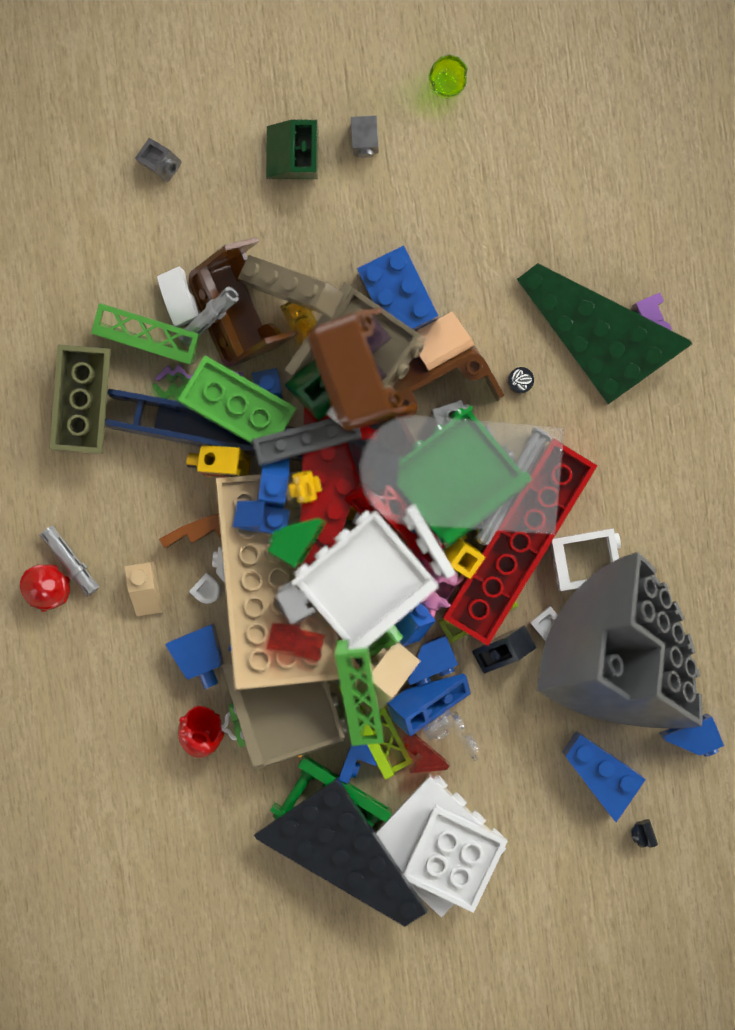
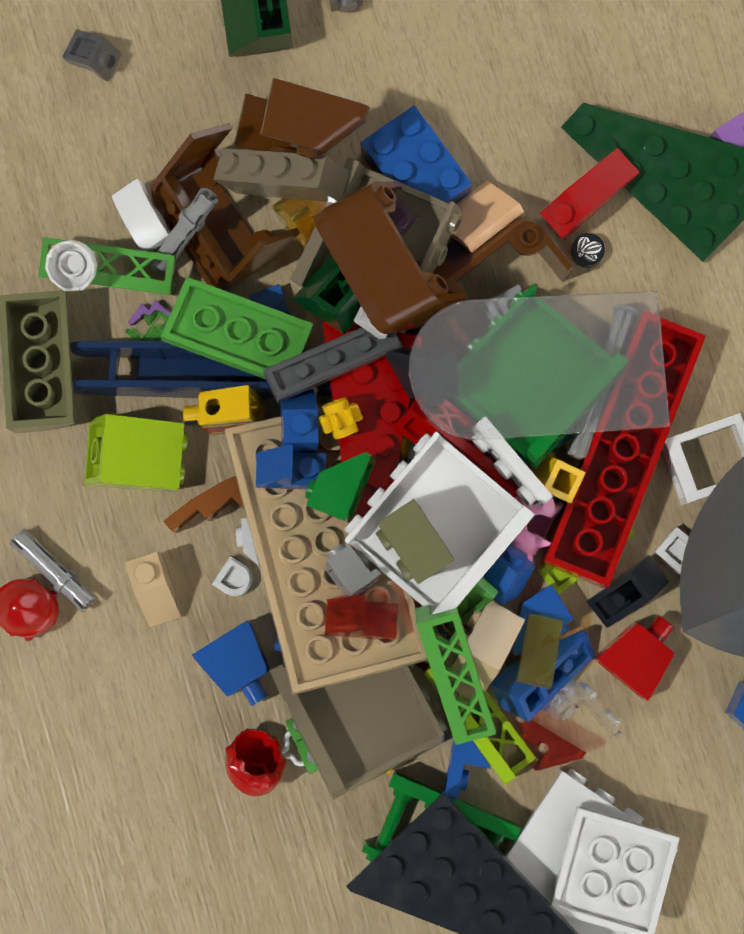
camera: 10 degrees left, 5 degrees down
(117, 331) = (71, 265): none -> white hair
(145, 483) = (135, 453): none -> lime slope
(308, 249) = (297, 120): none -> reddish brown windscreen
(343, 593) = (414, 541): none -> olive piece
(427, 685) = (539, 651): none -> clear yellow tile
(503, 700) = (639, 656): none -> red torso
(528, 337) = (589, 194): none -> red slope

